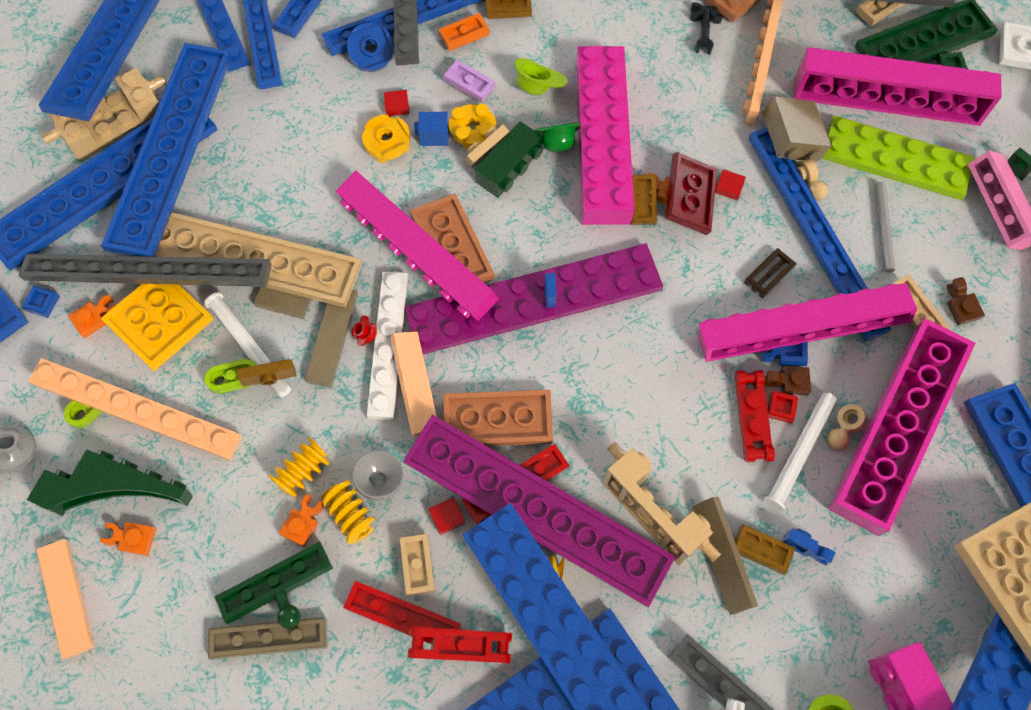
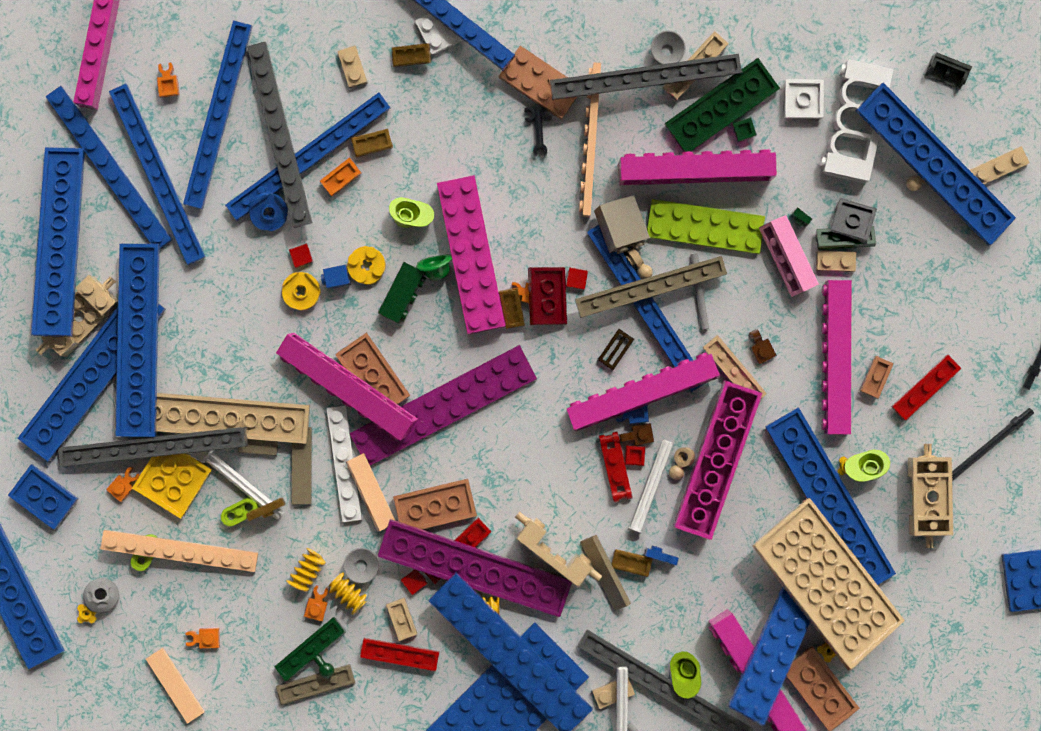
camera: 10 degrees left, 20 degrees up
(40, 301) = (81, 480): blue tile -> none
(102, 478) = (173, 602): dark green arch -> none
(364, 331) = (324, 458): red plate -> none
(460, 645) = (441, 667): red plate -> none
(469, 81) = (355, 224): lavender plate -> none
(478, 150) = (385, 280): tan plate -> none
(550, 290) = (453, 405): blue tile -> none
(826, 201) = (650, 287): none -> dark tan plate

